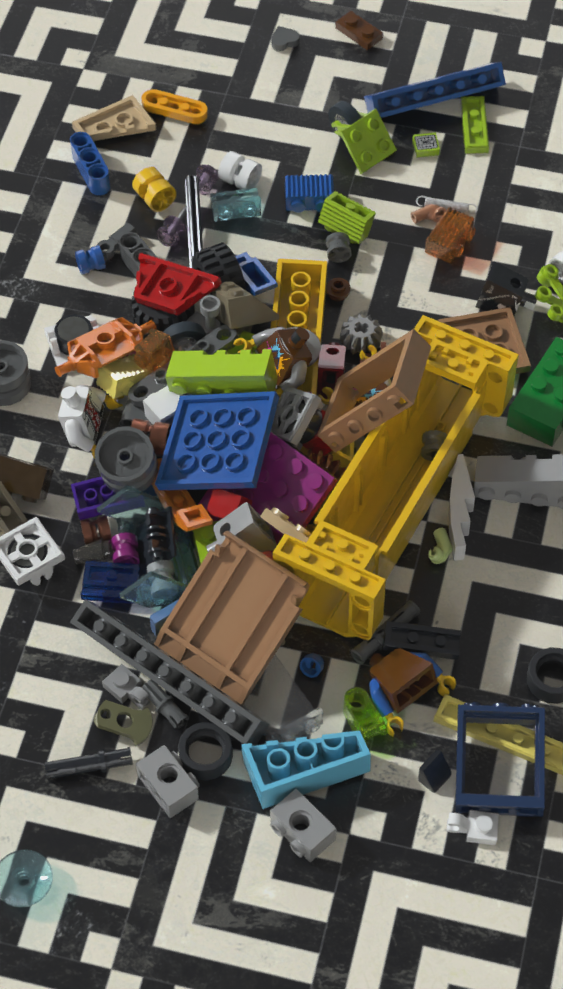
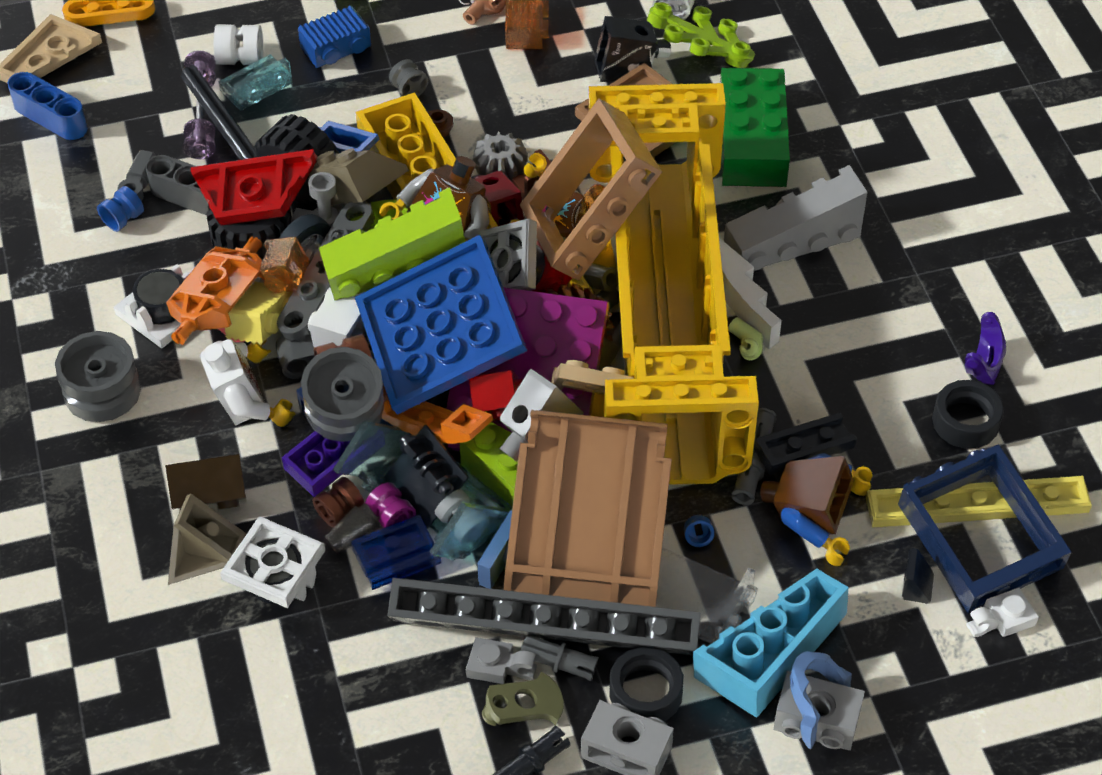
camera: 30 degrees left, 5 degrees down
(154, 189) = (147, 102): yellow wheel -> none
(330, 812) = (798, 683): none -> medium blue helmet
(346, 216) = (398, 40): lime brick -> none
(363, 718) = (800, 553): clear neon green piece -> none
(432, 442) = (672, 232): dark grey wheel -> none

